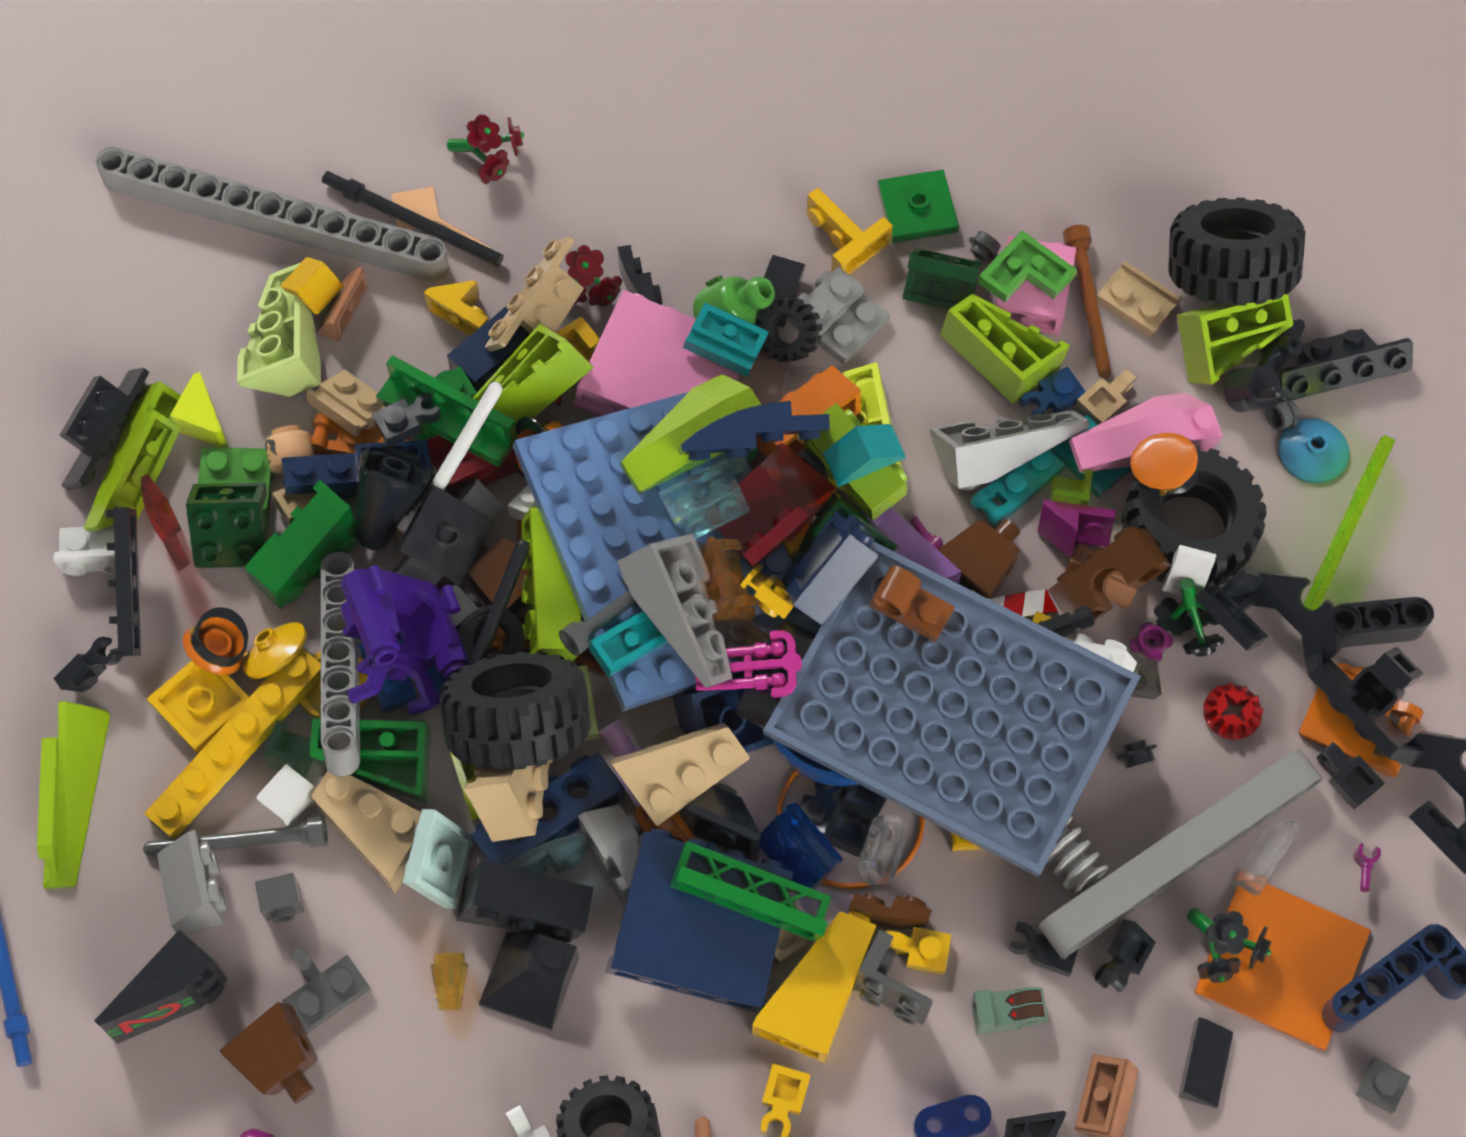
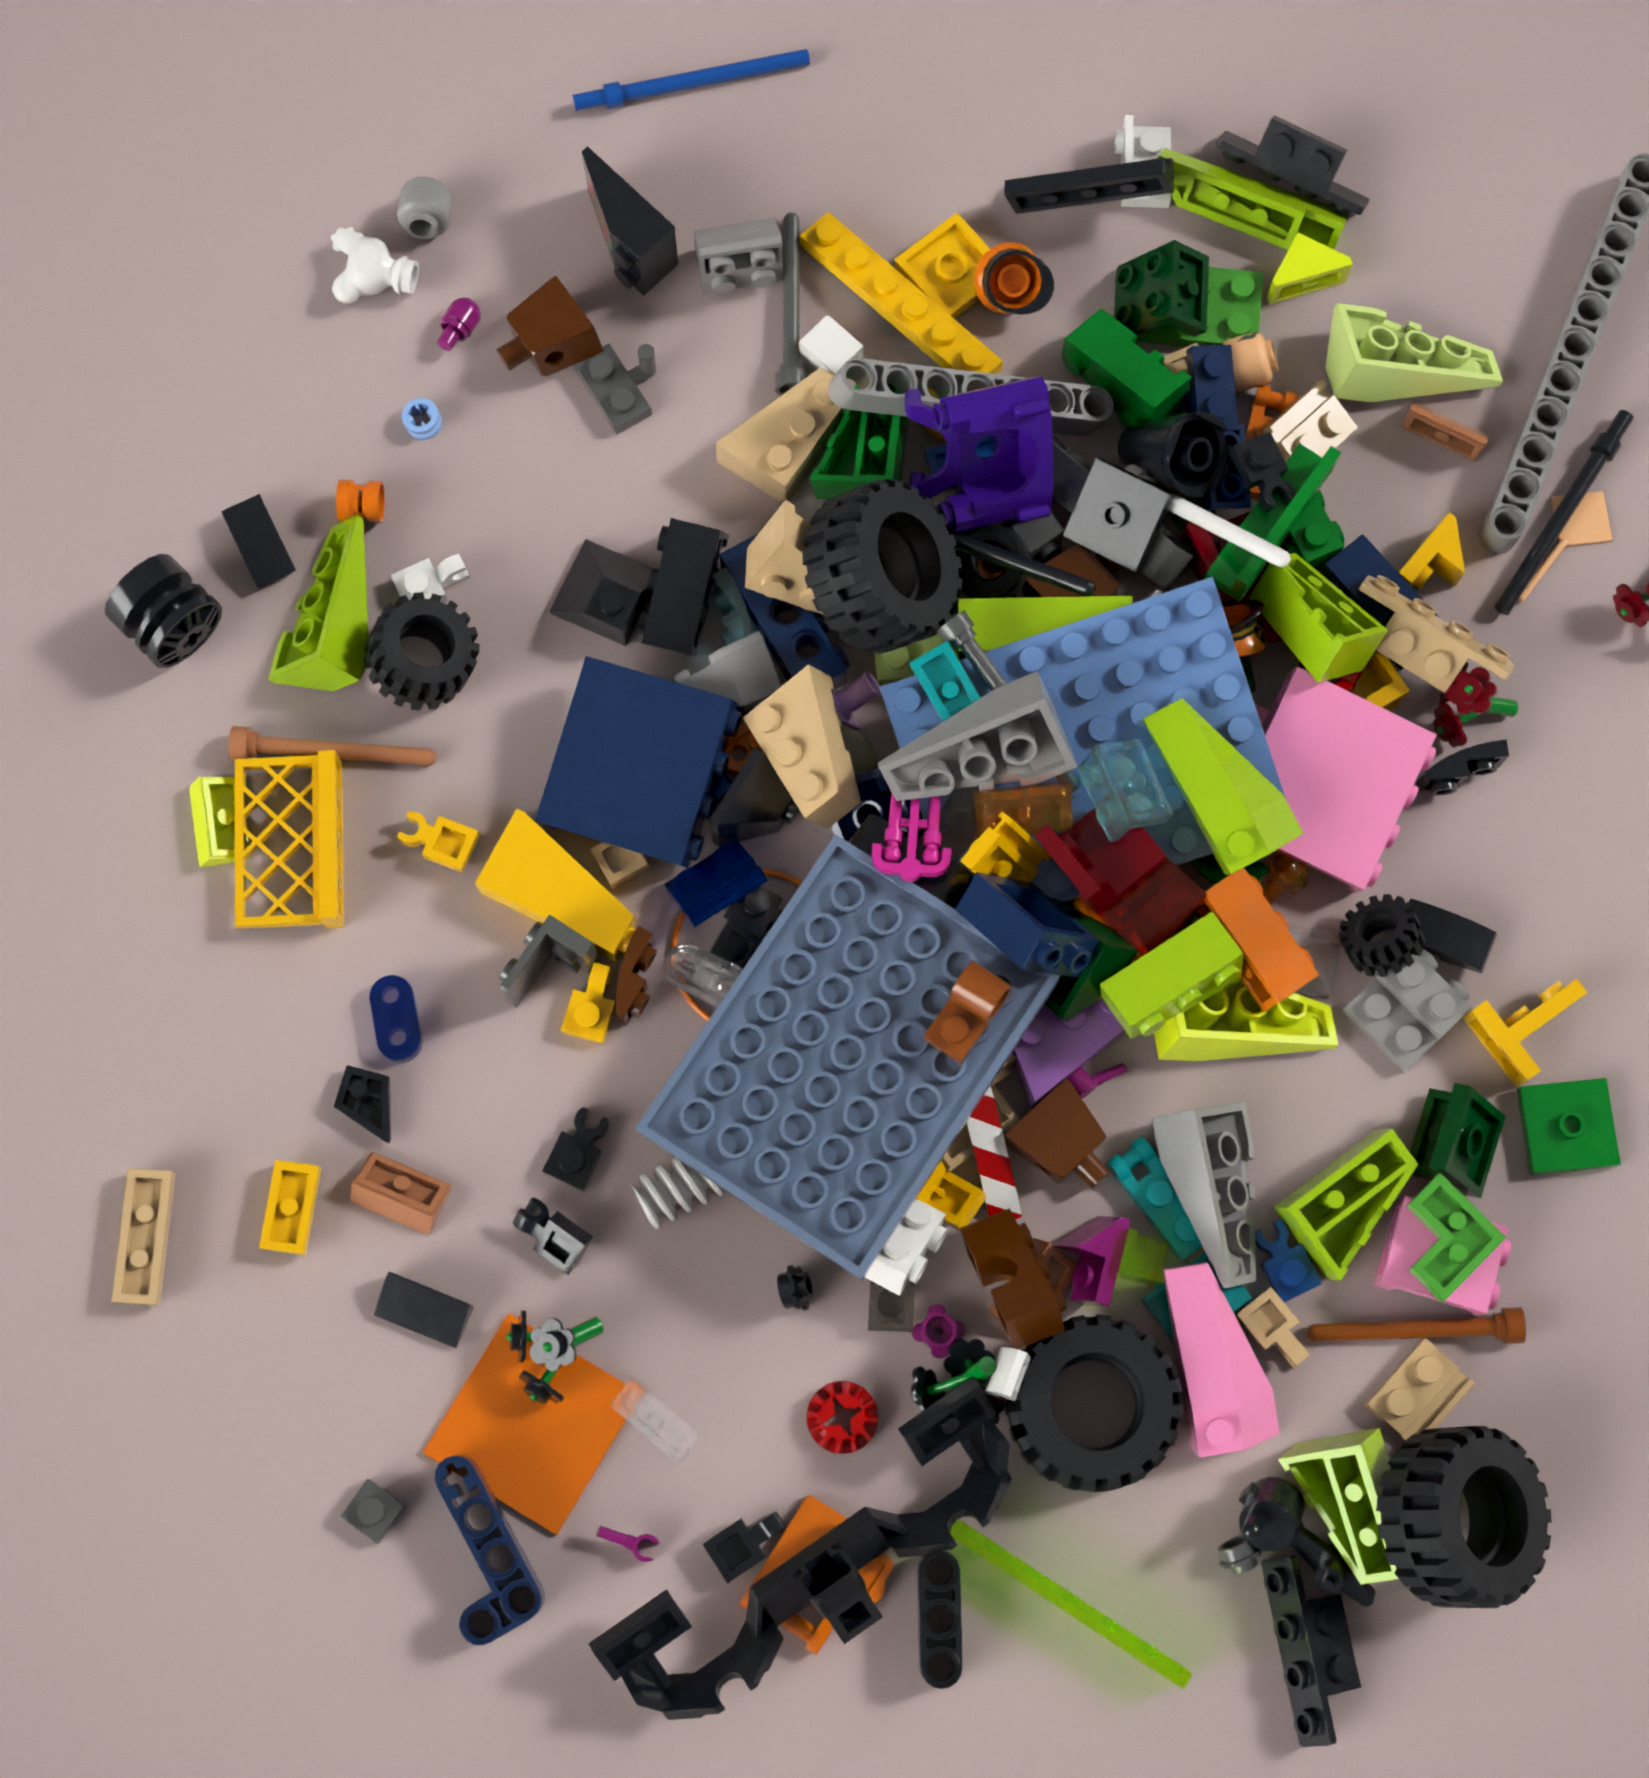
camera: 95 degrees right, 10 degrees up
(68, 789) = (863, 138): lime wedge -> none
(85, 669) = (992, 149): black plate -> none
(163, 522) = (1160, 222): clear red slope -> none
(274, 649) = (1002, 340): yellow dish -> none
(279, 898) = (718, 342): dark grey plate -> none
(288, 749) = (887, 344): clear green panel -> none
(313, 284) = (1467, 390): yellow panel -> none
(438, 859) = (736, 494): light aqua plate -> none
(449, 980) = (612, 508): clear yellow cone -> none
(725, 339) = (1361, 850): teal plate -> none
(736, 296) = (1419, 867): bright green piece -> none
(738, 431) = (1202, 826): dark blue slope -> none
(748, 900) = (641, 804): green fence -> none
(863, 452) = (1170, 979): teal slope -> none
(984, 246) = (1502, 1202): dark grey plate -> none
(1008, 1009) = (508, 1093): sand green leg -> none
(1066, 623) = (955, 1210): black axle -> none
(1165, 464) = (1147, 1361): orange piece -> none
(1179, 853) = (667, 1320): light grey beam -> none
(1308, 462) = (1166, 1595): dark azure dish -> none

